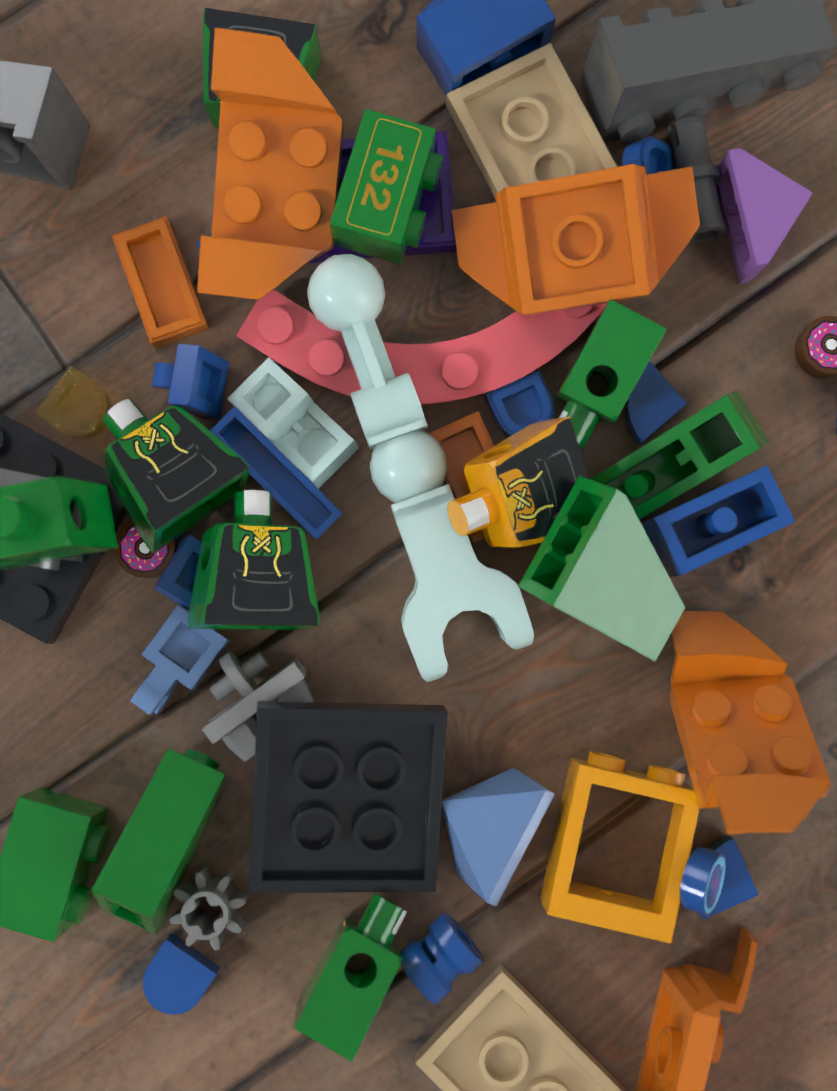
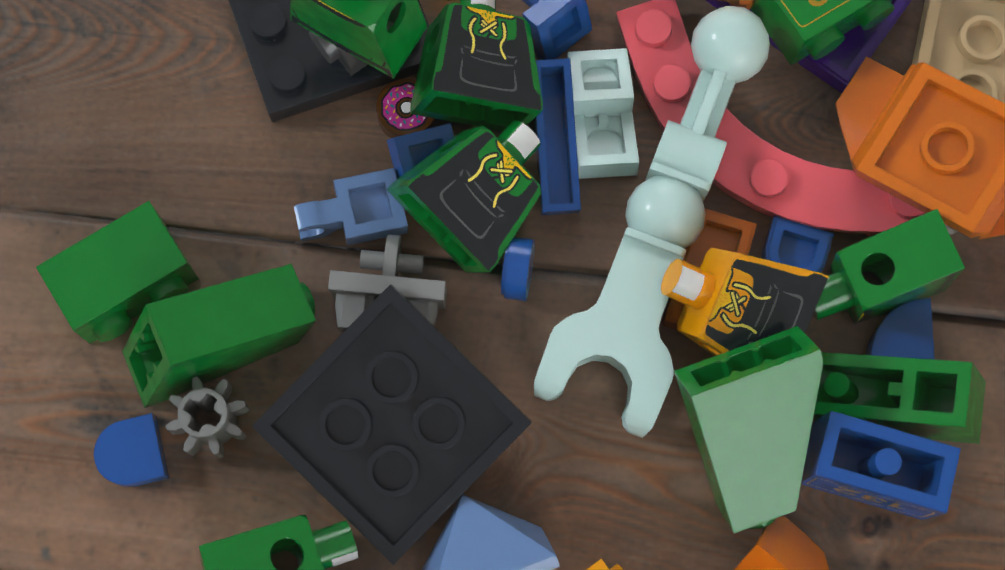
camera: 40 degrees right, 10 degrees down
(336, 599) = (517, 269): none -> blue tile

